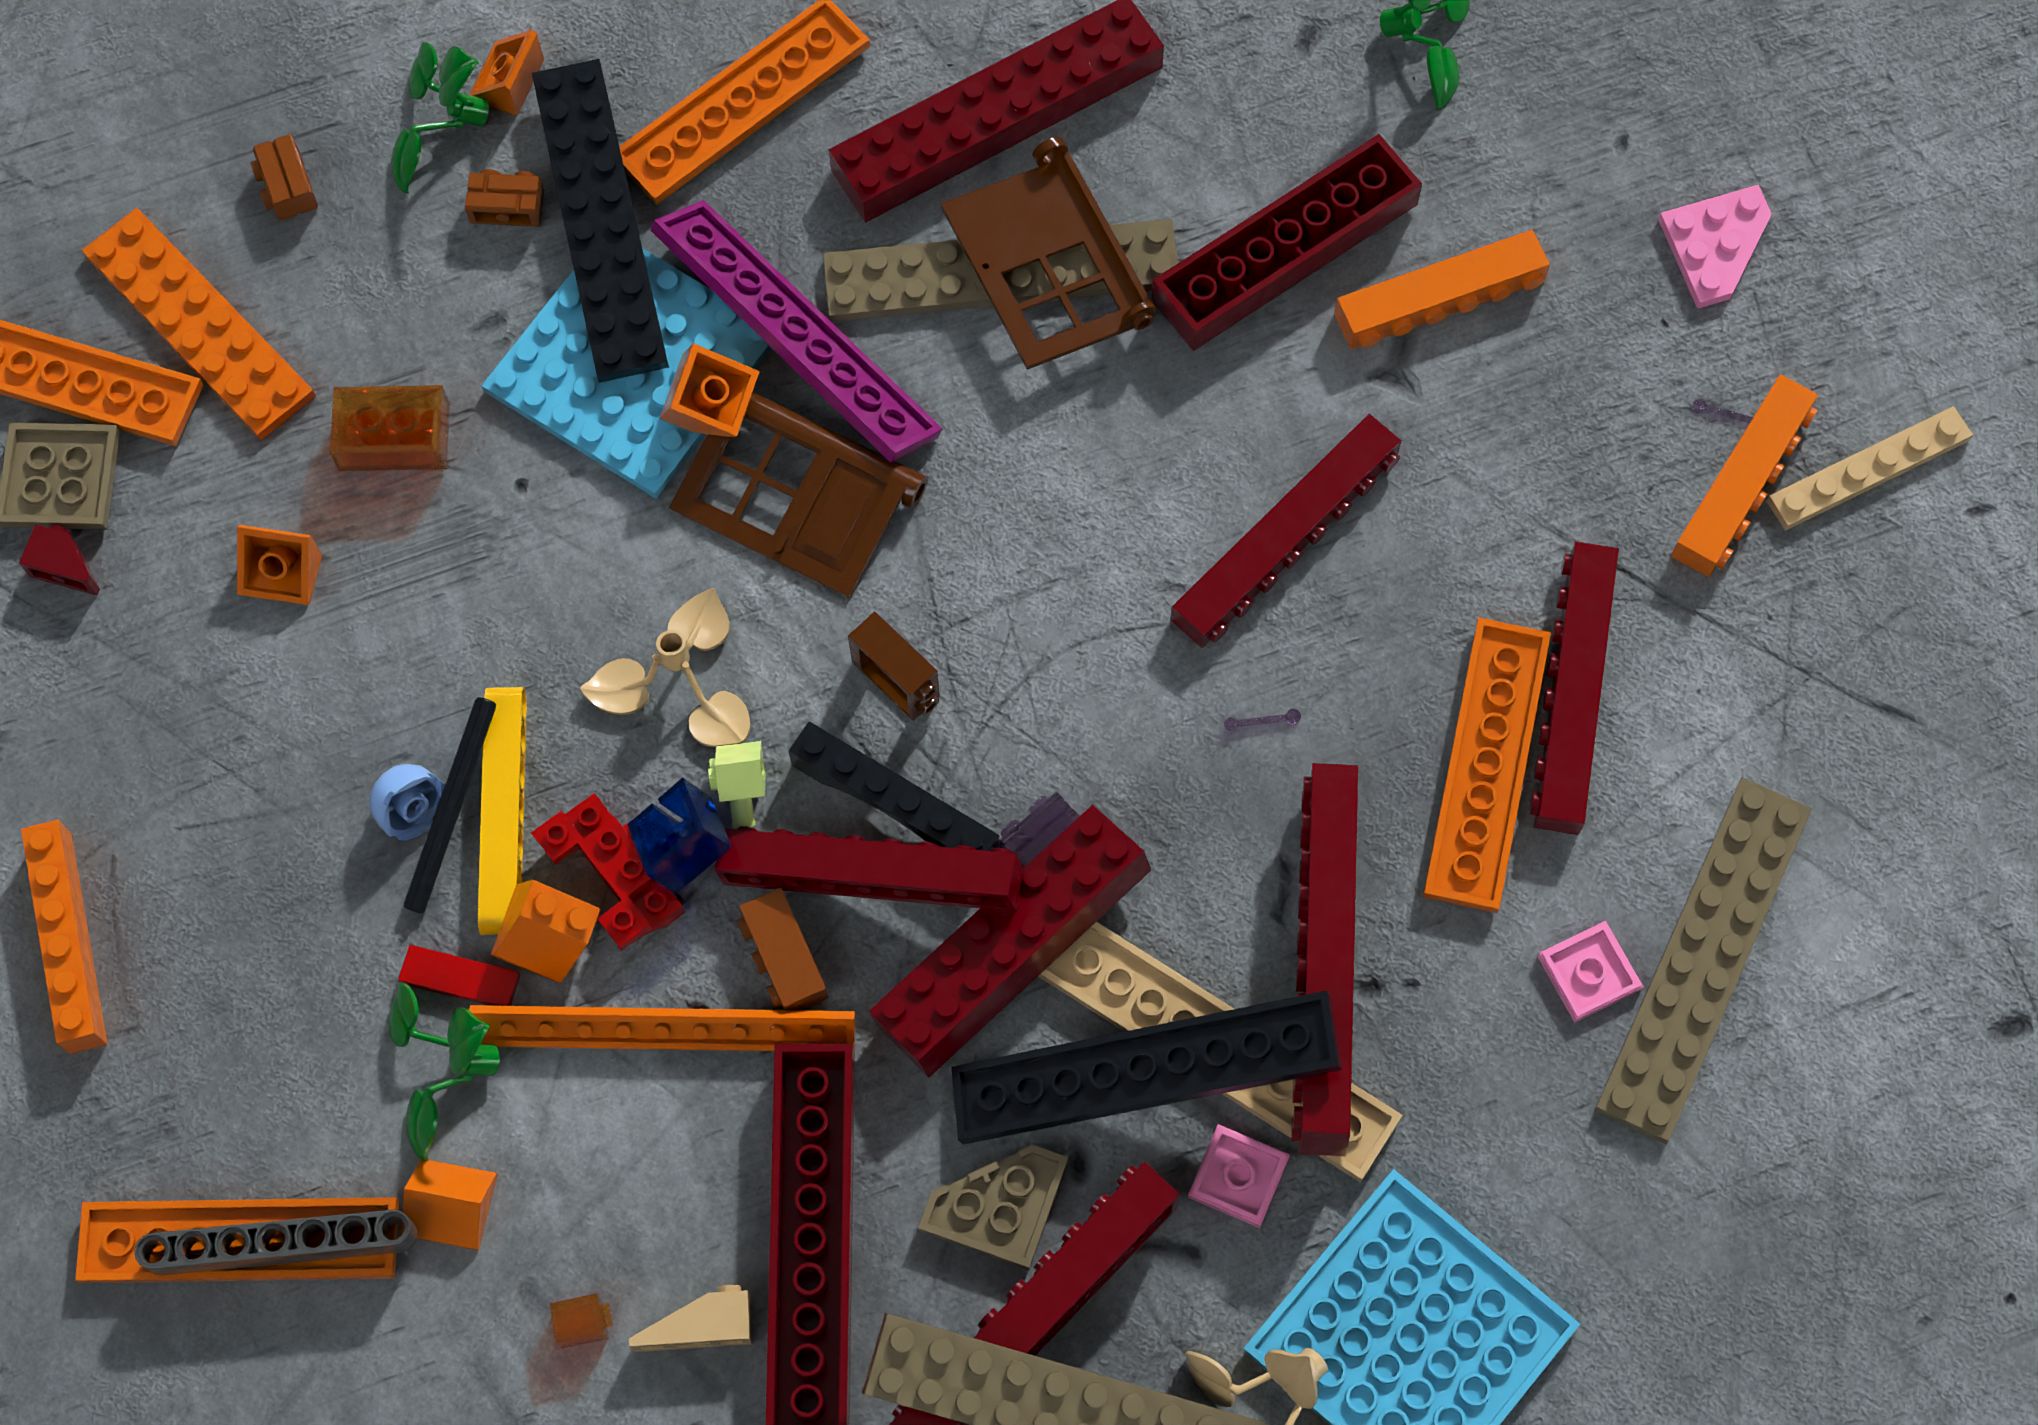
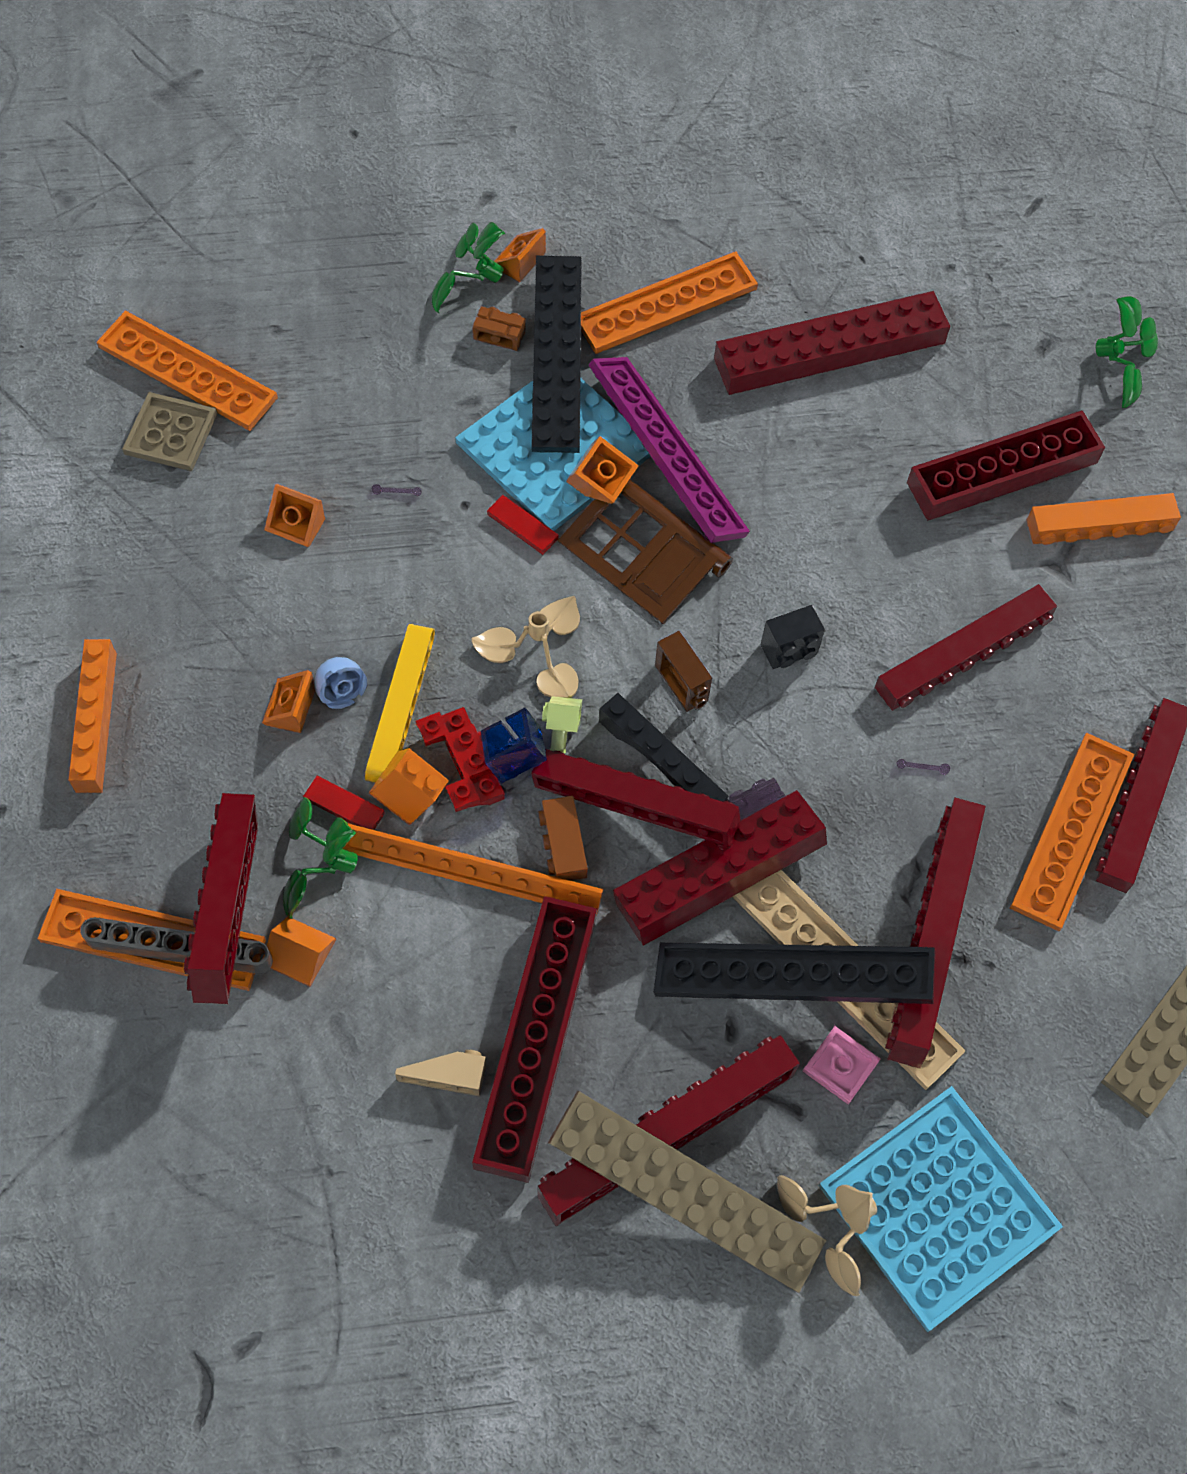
camera: 10 degrees right, 5 degrees down
(57, 559) = (155, 481): dark red slope -> none
(199, 323) = (285, 361): orange plate -> none
(284, 177) = (362, 285): dark orange brick -> none
(324, 1163) = (222, 899): none -> dark red brick
(343, 846) = (290, 702): none -> orange slope
(386, 491) = (377, 489): none -> clear purple hinge
(390, 428) = (389, 448): clear orange brick -> none
(449, 805) = (366, 692): black axle -> none
(581, 1320) = (366, 1049): clear orange brick -> none
(612, 496) = (522, 524): none -> red tile
(942, 278) = (809, 442): dark tan plate -> none
(999, 1206) = (670, 1044): dark tan plate -> none
(1036, 218) = (839, 415): reddish brown door -> none
(1038, 578) = (792, 637): none -> black brick
(1590, 971) = (1116, 986): bright pink tile -> none

